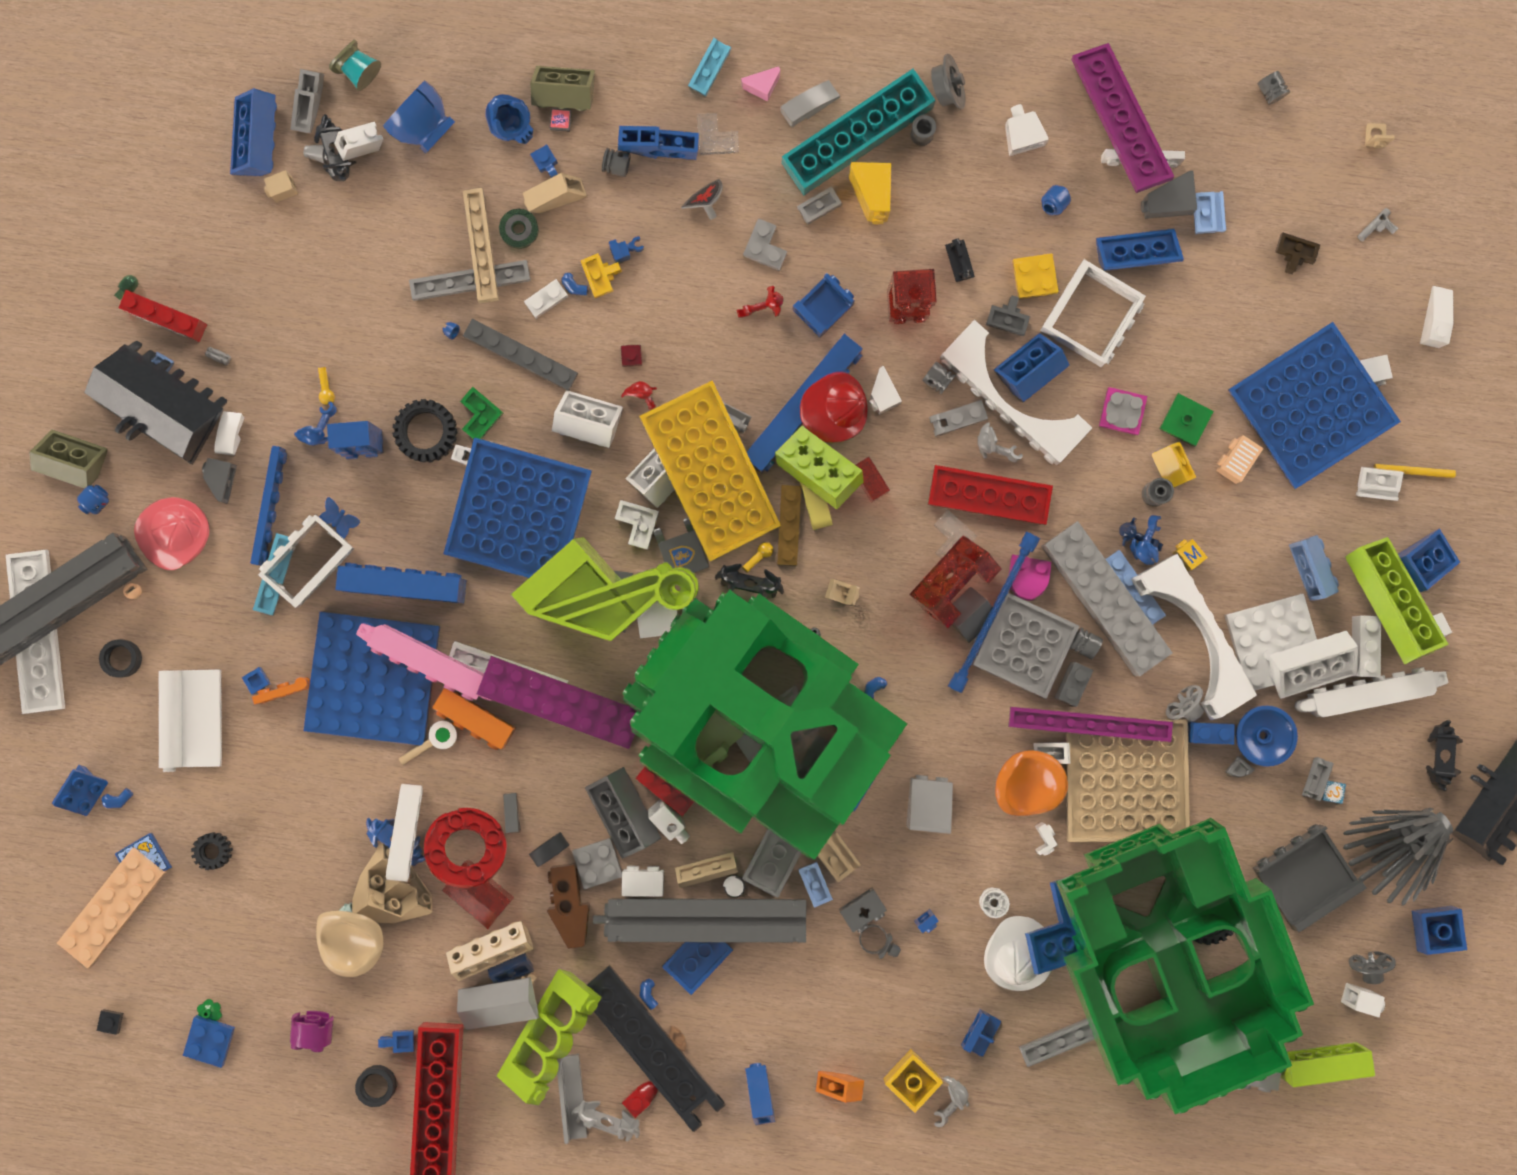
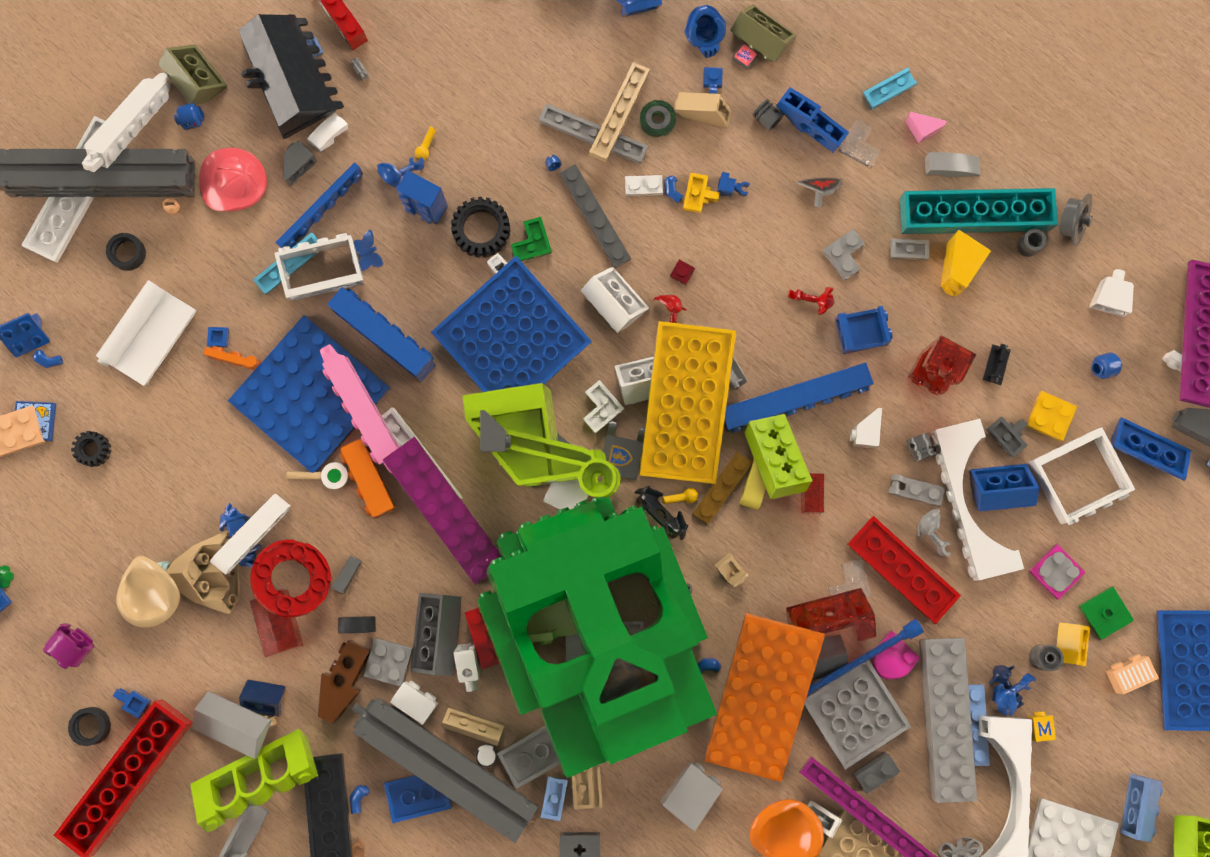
camera: 30 degrees right, 5 degrees down
(42, 542) = (126, 122): none -> white hinge
(489, 950) = (253, 675): tan brick -> none
(560, 611) = (492, 435): none -> dark grey slope
(834, 408) = (820, 416): red piece -> none
(938, 682) = (763, 697): none -> orange plate
(1086, 643) = (908, 745): dark grey piece -> none

